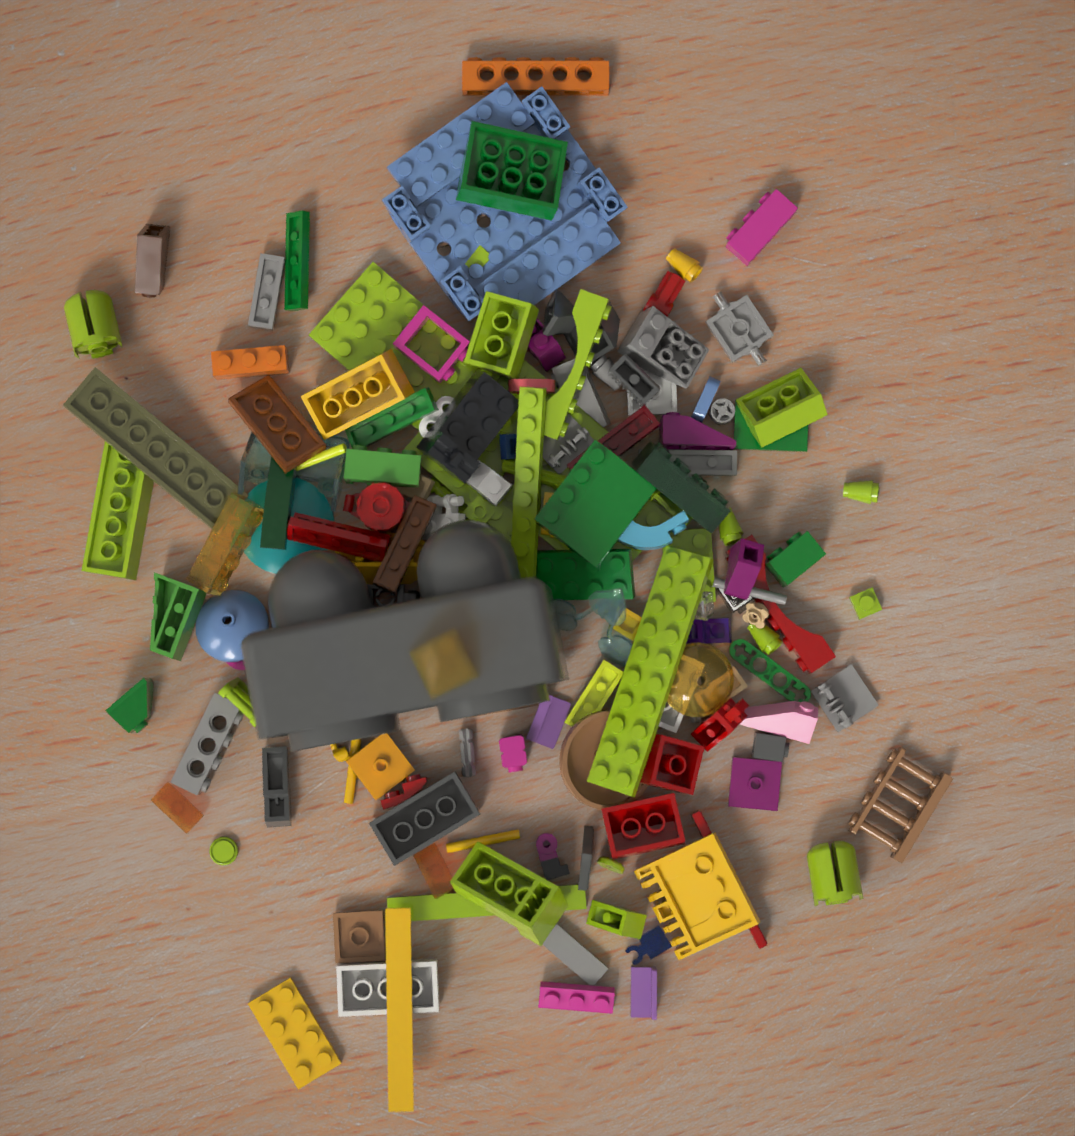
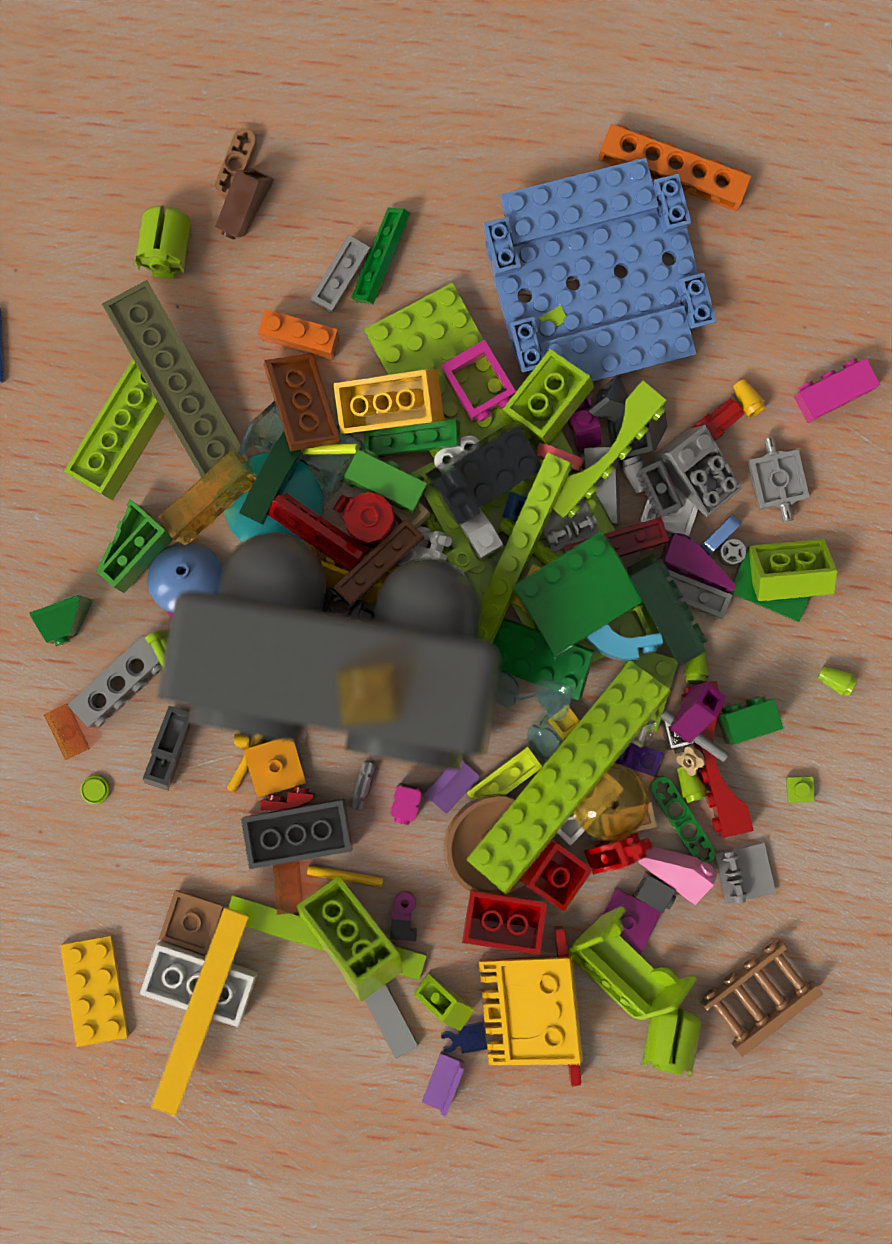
camera: 30 degrees right, 0 degrees up
(123, 207) = (235, 144): none -> medium nougat beam
(512, 171) = (619, 243): green slope -> none
(576, 997) = (377, 1062): dark pink plate -> none
(586, 858) = (437, 931): dark grey tile -> none
(611, 864) = (459, 947): lime piece -> none
(766, 828) = (624, 973): none -> lime windscreen

